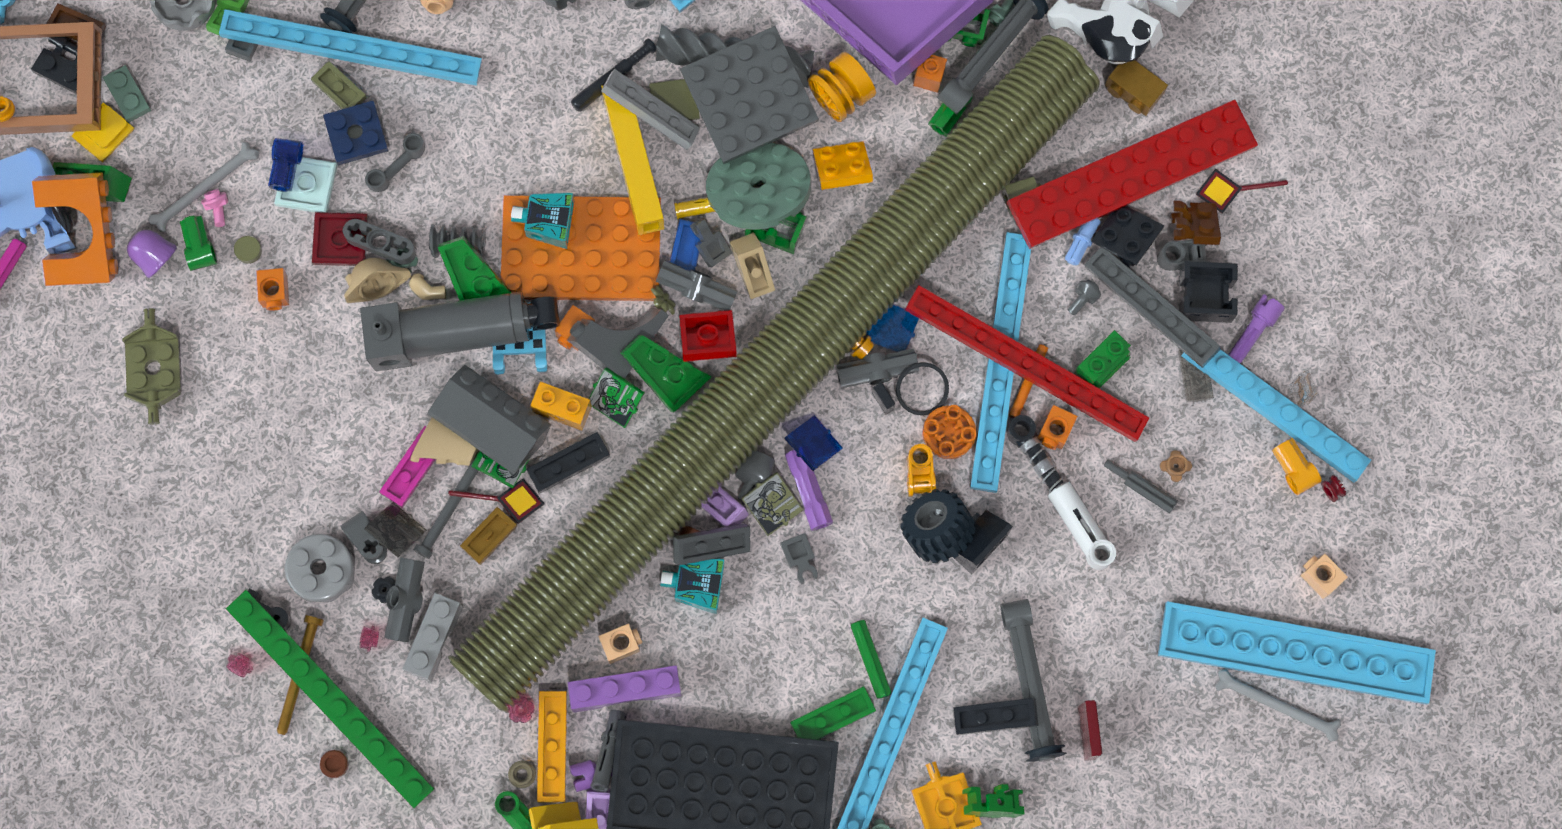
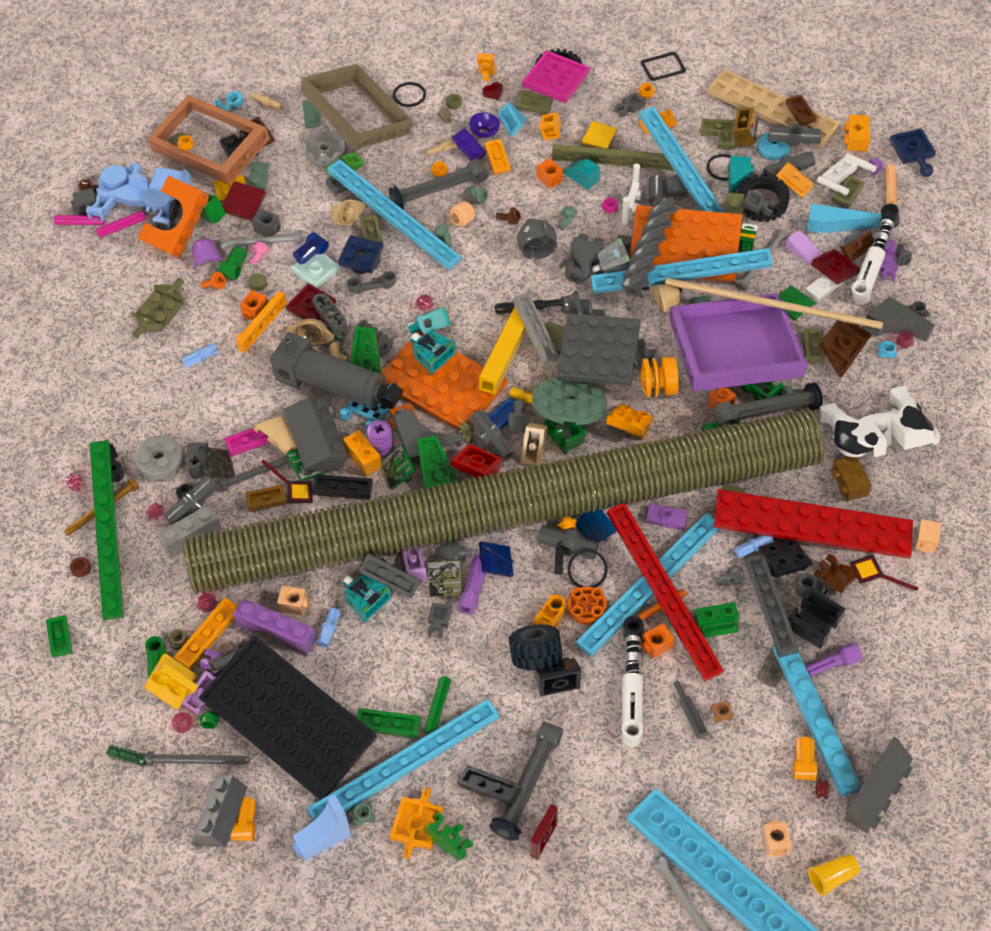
camera: 40 degrees right, 20 degrees down
(138, 143) = (243, 200): none -> dark red tile
(186, 153) = (266, 223): none -> dark grey brick
(195, 280) = (217, 280): none -> orange plate
(257, 398) = (199, 355): none -> light blue axle
(286, 81) = (346, 212): none -> tan hat
(299, 269) = (261, 322): none -> light orange plate
(431, 35) = (442, 232): none -> sand green plate
(481, 151) = (424, 302): none -> clear pink plate
(515, 176) = (438, 319): none -> teal torso
(570, 366) = (381, 437): none -> medium lavender piece
(683, 647) = (328, 627): none -> light blue axle
(963, 263) = (666, 516): none -> medium lavender plate
(1262, 110) = (928, 536): none -> light nougat brick
(1390, 449) = (879, 787): none -> dark grey slope
(1402, 576) = (833, 873): none -> yellow plant

